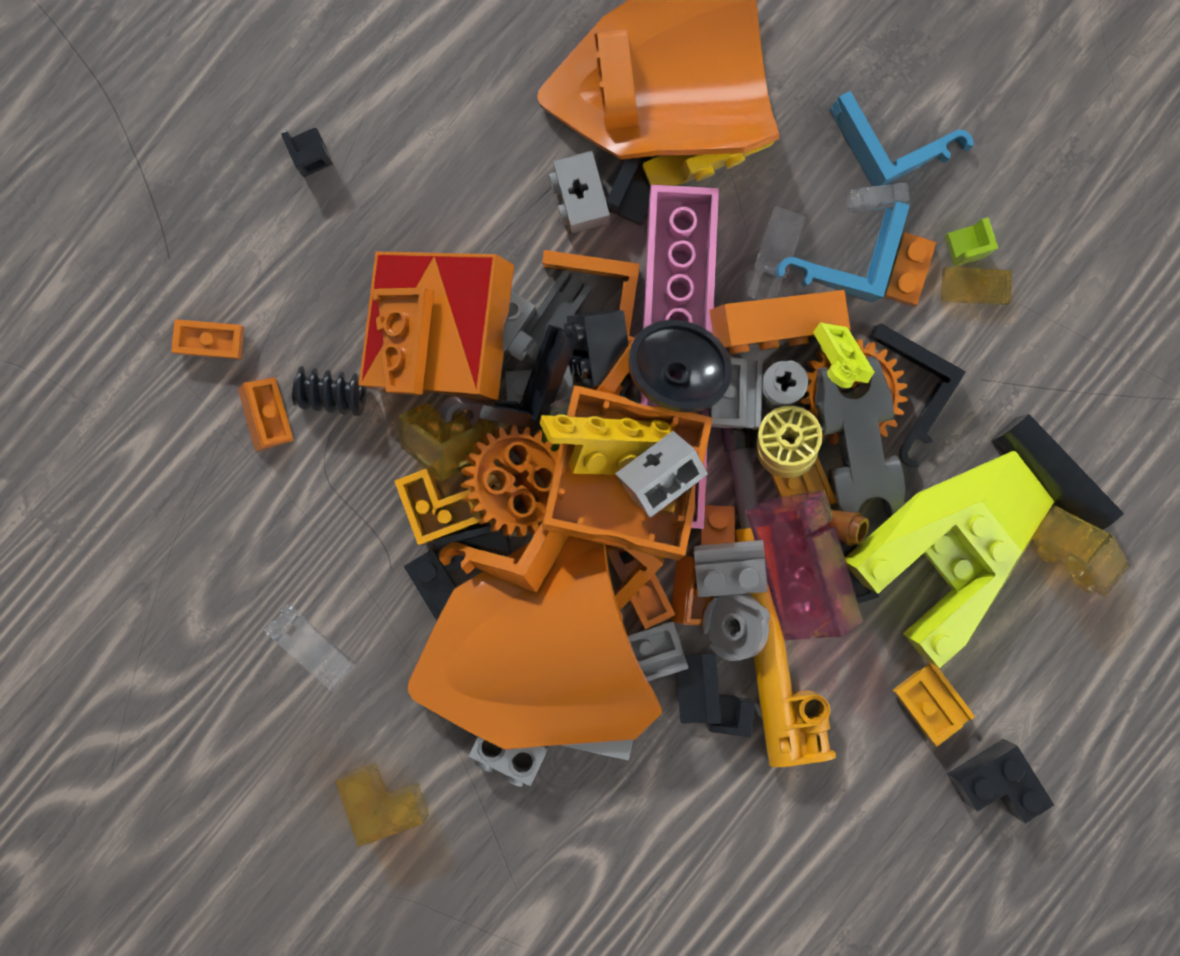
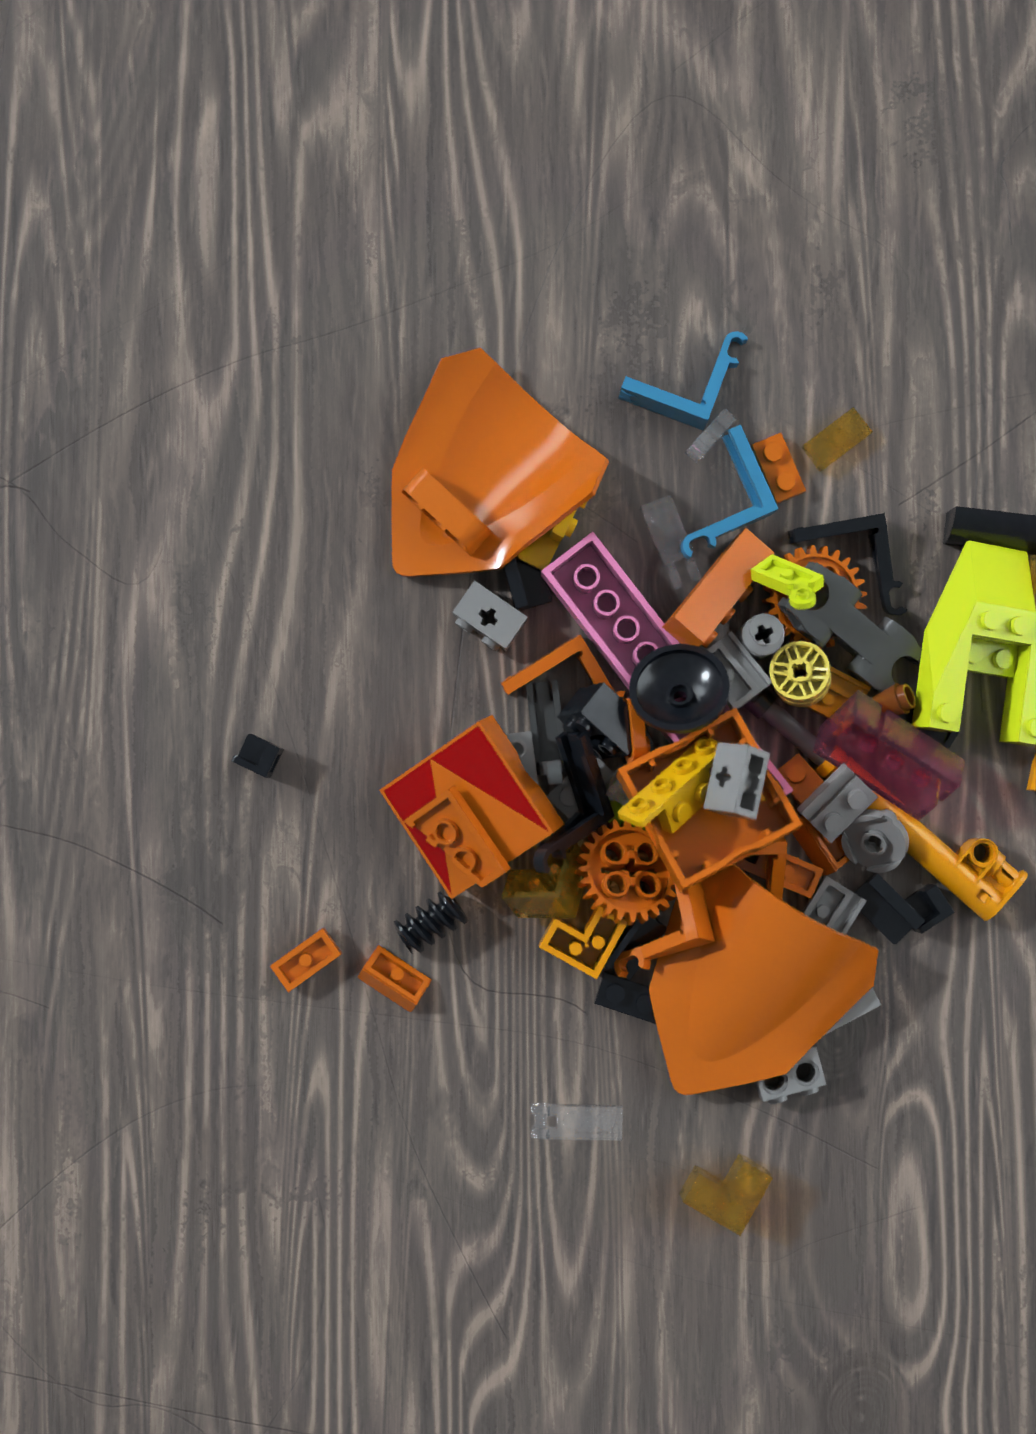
camera: 40 degrees left, 0 degrees up
(971, 242) = (807, 412): lime panel -> none

